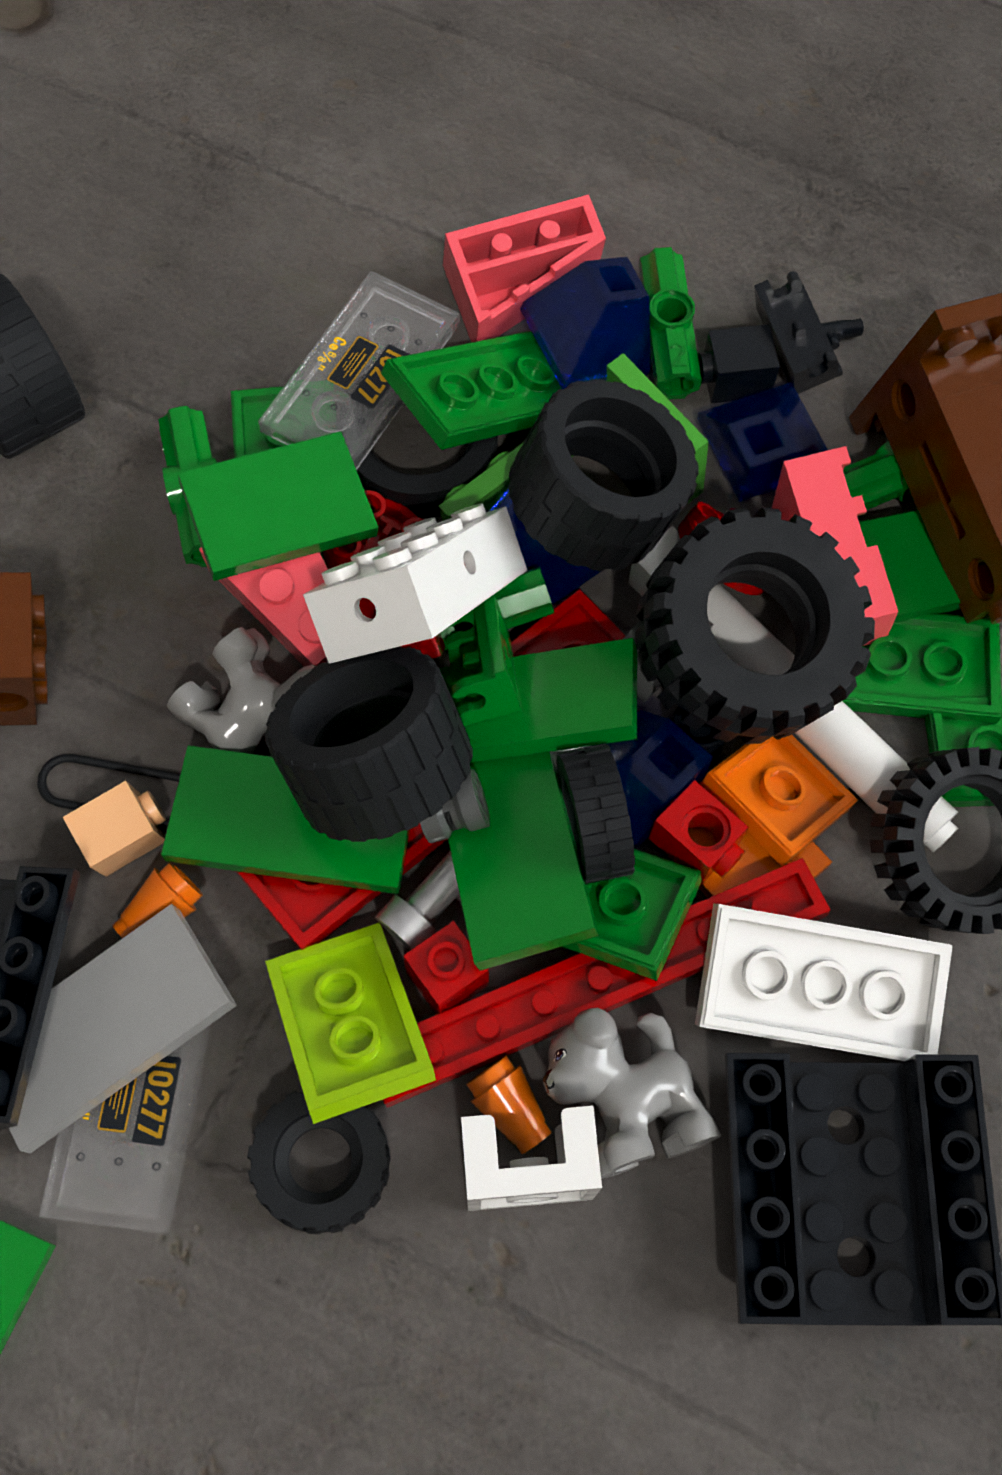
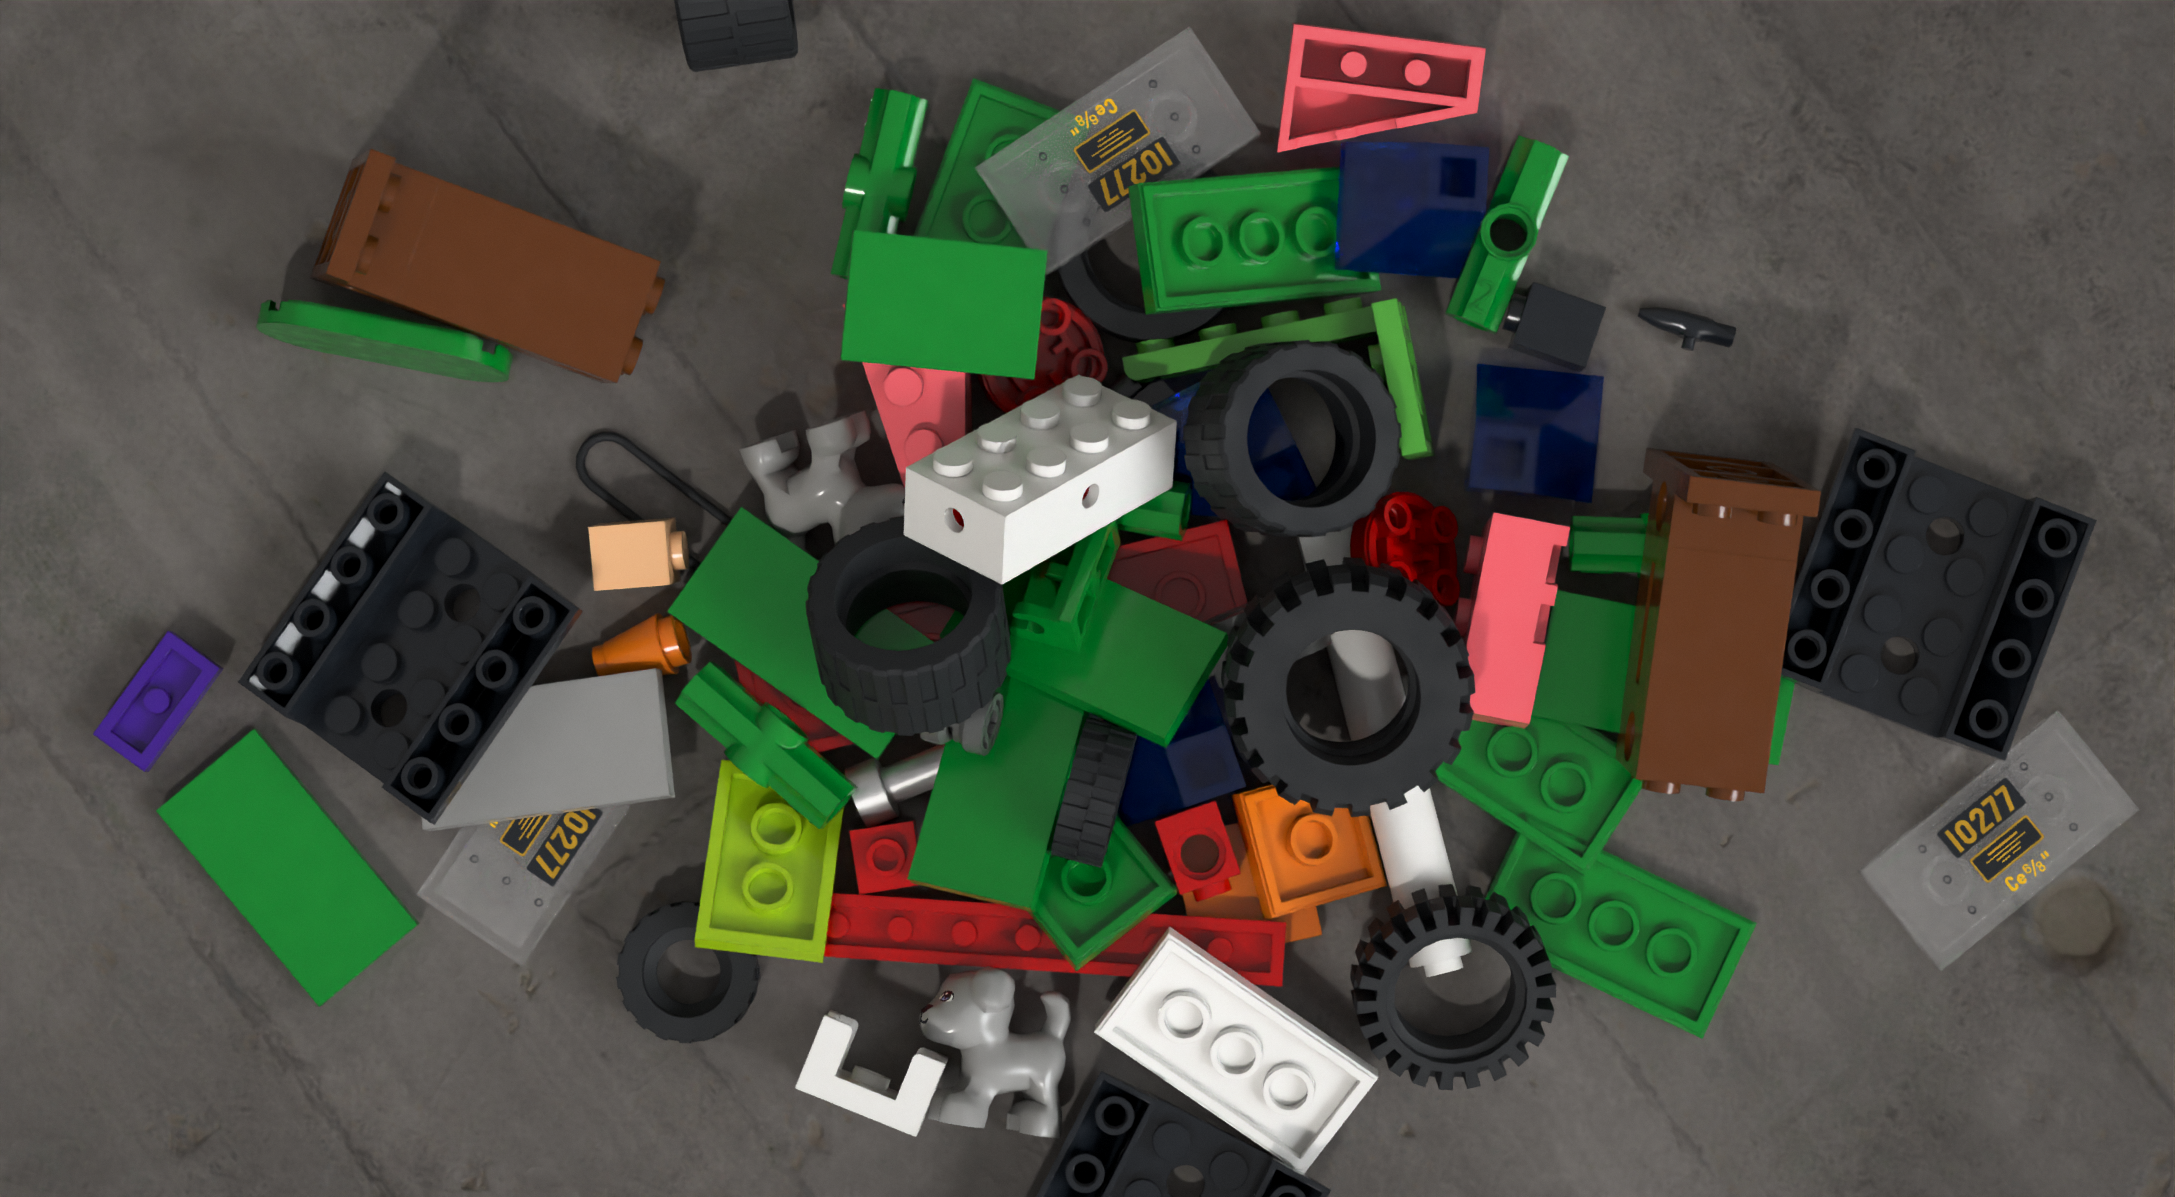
camera: 35 degrees right, 20 degrees up
(296, 920) = (766, 745): none -> green piece
(511, 1102) = (885, 1007): orange cone -> none
(797, 333) = (1640, 325): black hinge -> none

